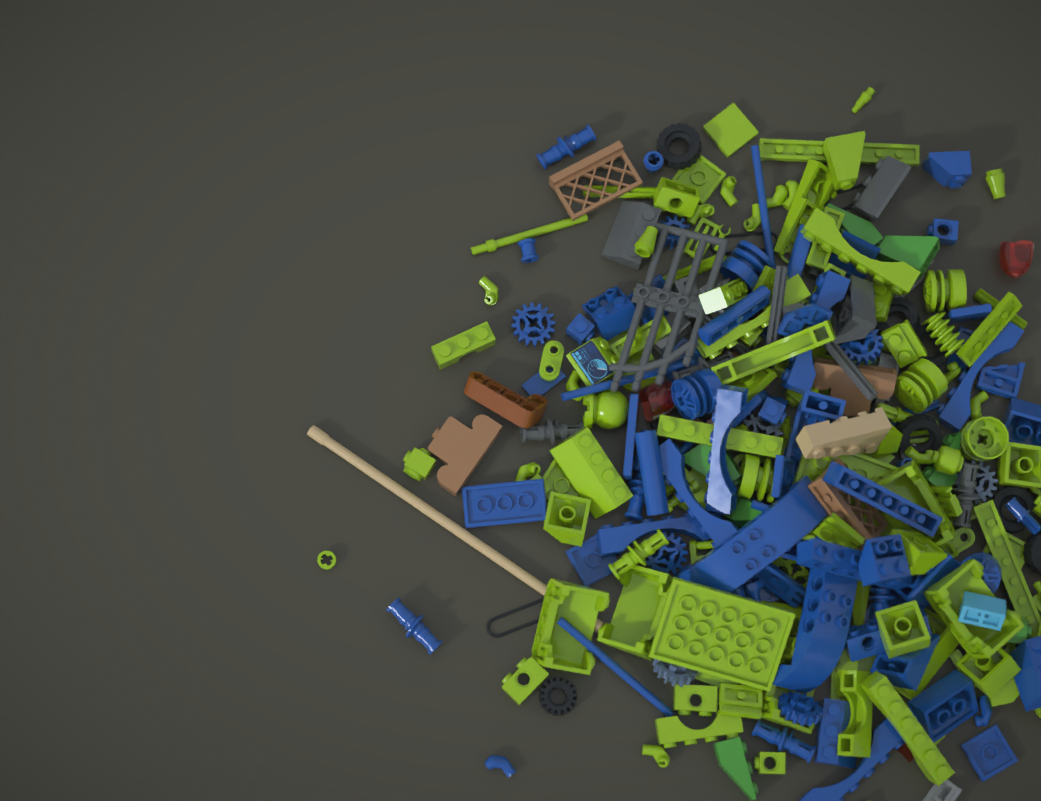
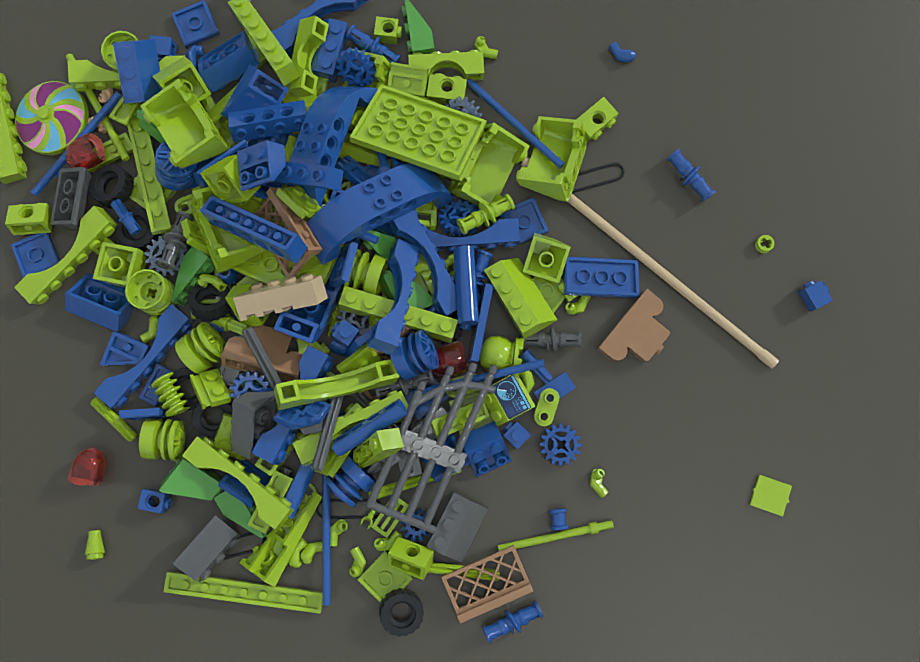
camera: 170 degrees left, 5 degrees up
(270, 507) = (815, 295): none -> blue brick
(307, 295) = (770, 495): none -> lime piece
(418, 463) = (677, 321): lime brick -> none
(454, 348) = (628, 430): lime arch -> none
(505, 402) = (595, 369): dark orange beam -> none
(568, 405) = (541, 373): none -> blue axle
(571, 696) = (577, 99): black tyre -> none
(646, 243) = (446, 510): lime cone -> none
(655, 158) = (428, 603): blue cone -> none
(730, 130) = (347, 625): lime tile -> none
(844, 158) = (239, 582): lime slope -> none
(864, 98) = (209, 648): lime piece -> none
(902, 629) = (252, 113): lime slope -> none
(947, 460) = (186, 271): lime head -> none
(949, 167) = (136, 563): blue slope -> none
(954, 371) = (168, 362): lime arm -> none
(982, 610) = (176, 123): medium azure hinge -> none
(989, 329) = (125, 395): lime plate -> none
(1018, 717) = (165, 46): none -> blue brick

